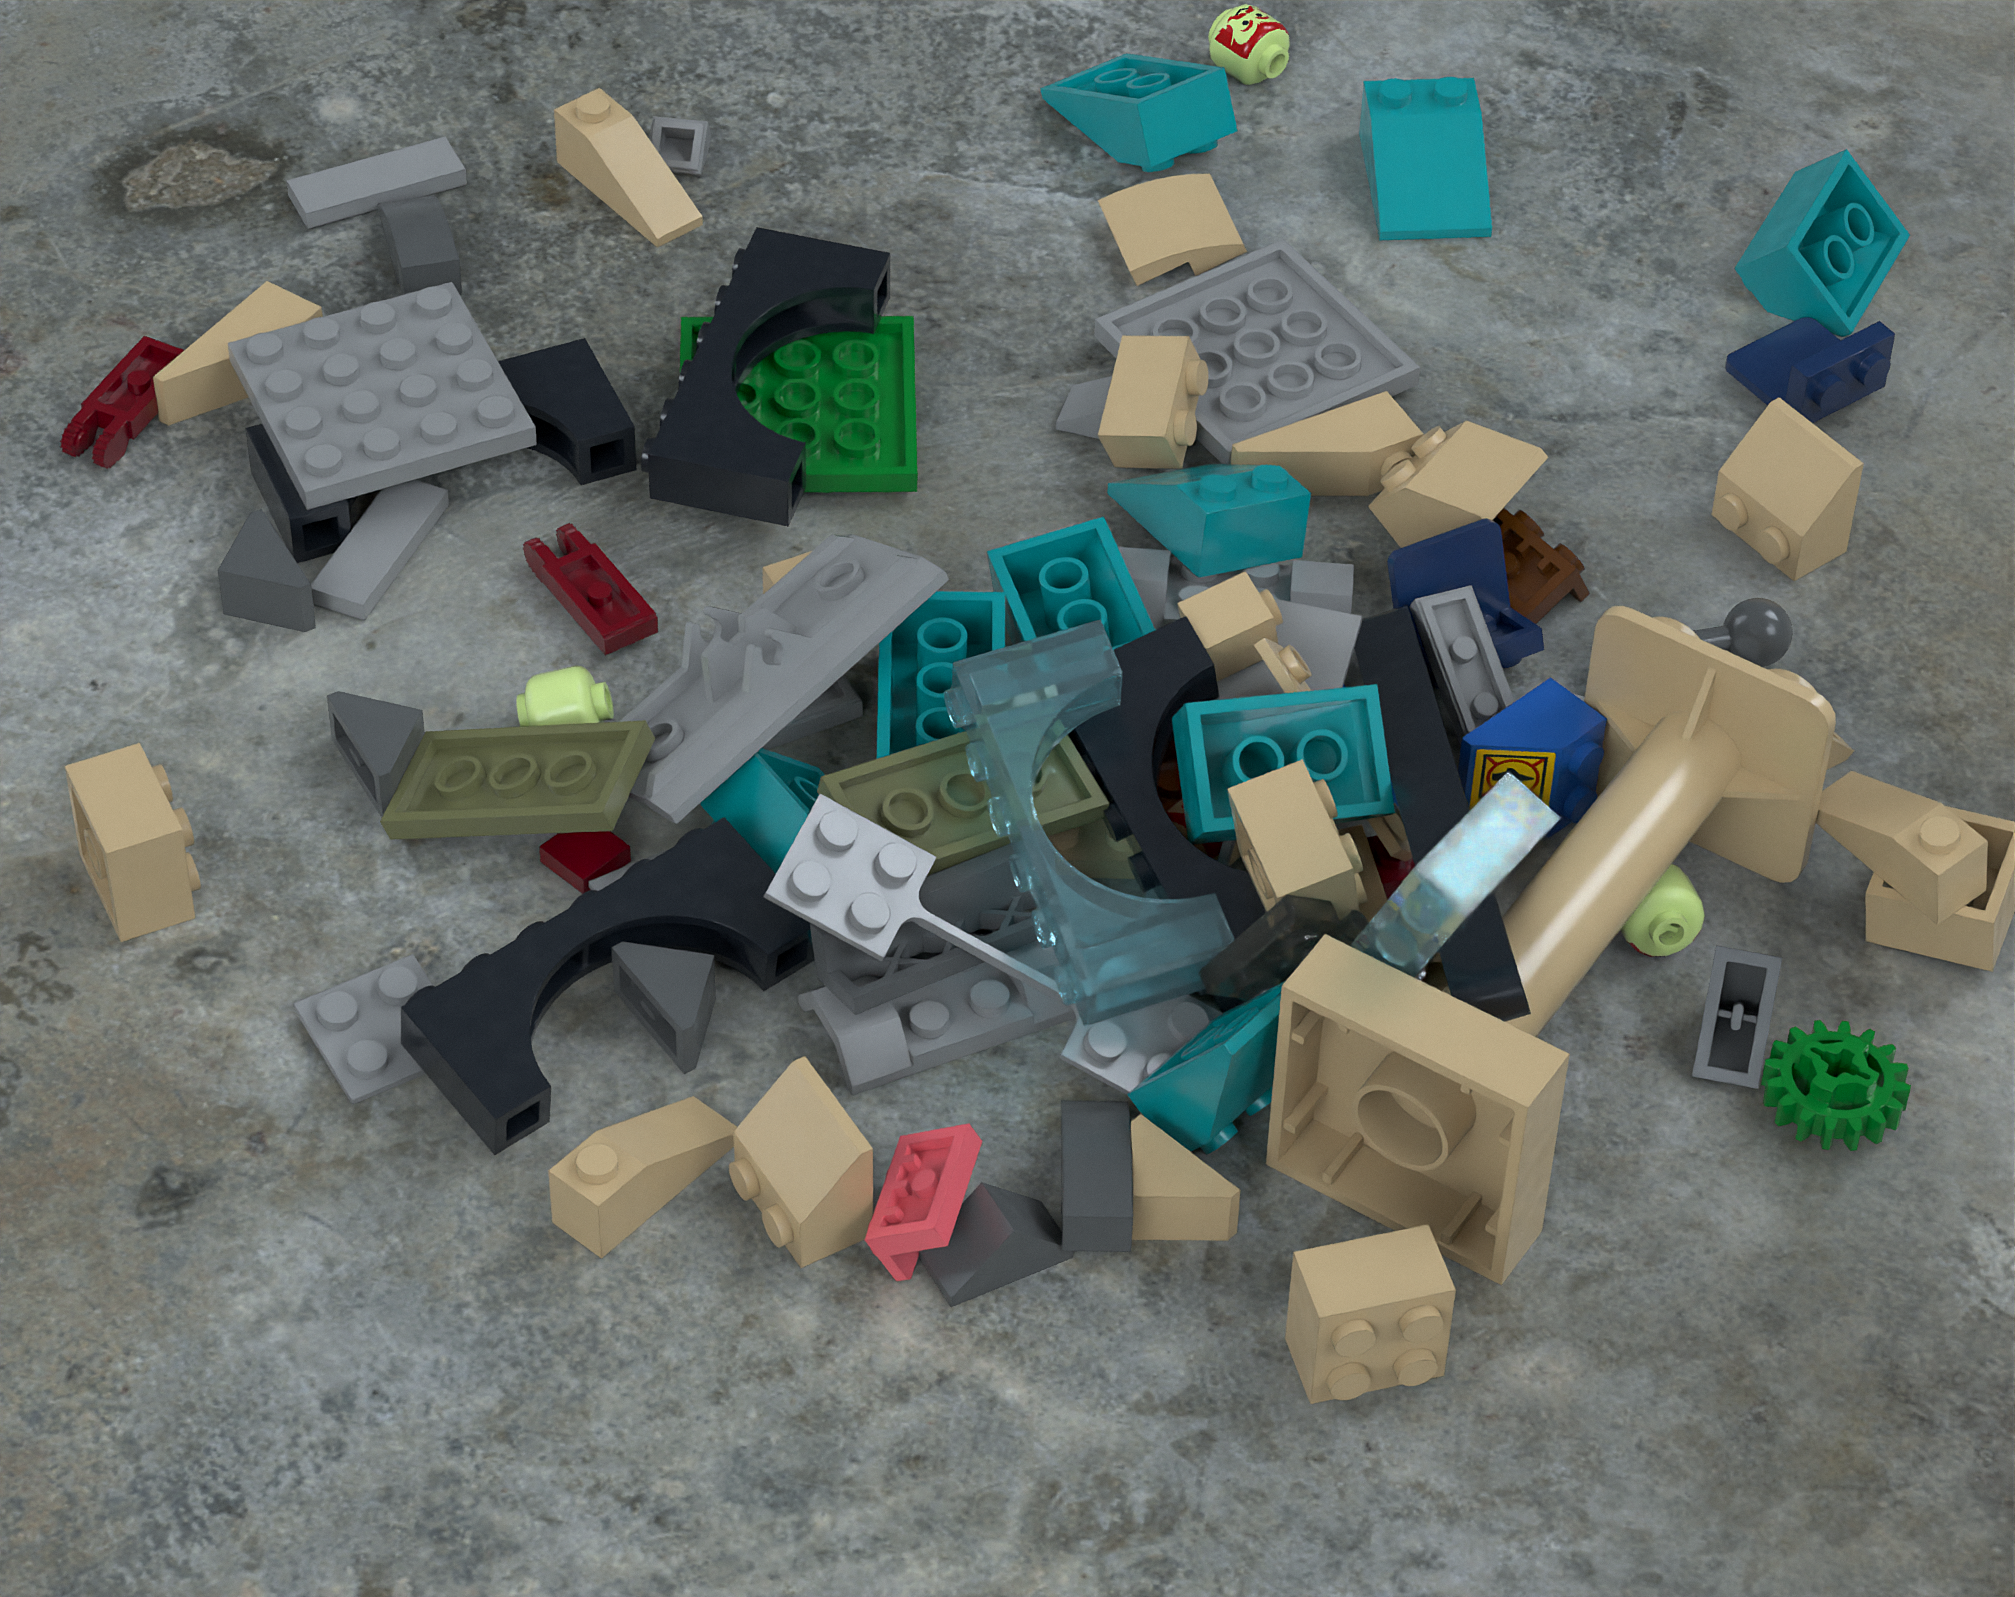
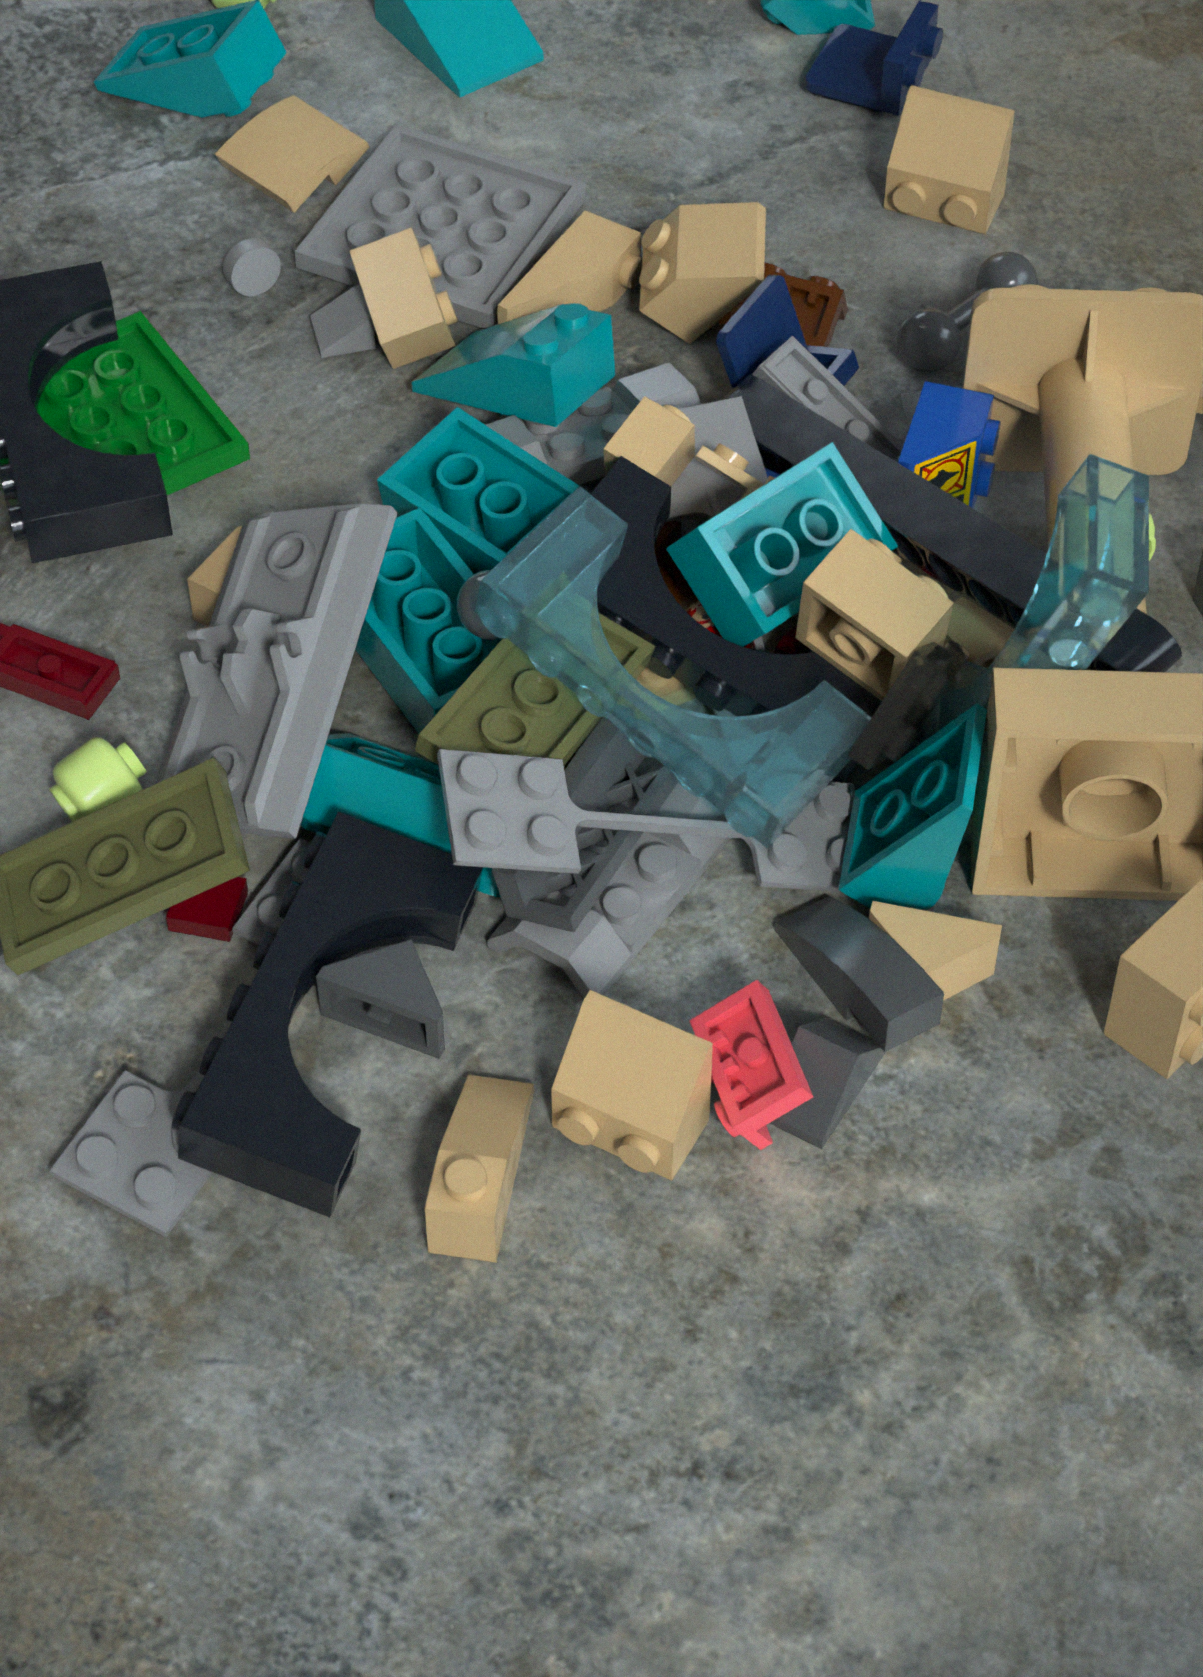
camera: 30 degrees left, 5 degrees up
(1047, 318) = (251, 267): none -> light grey tile

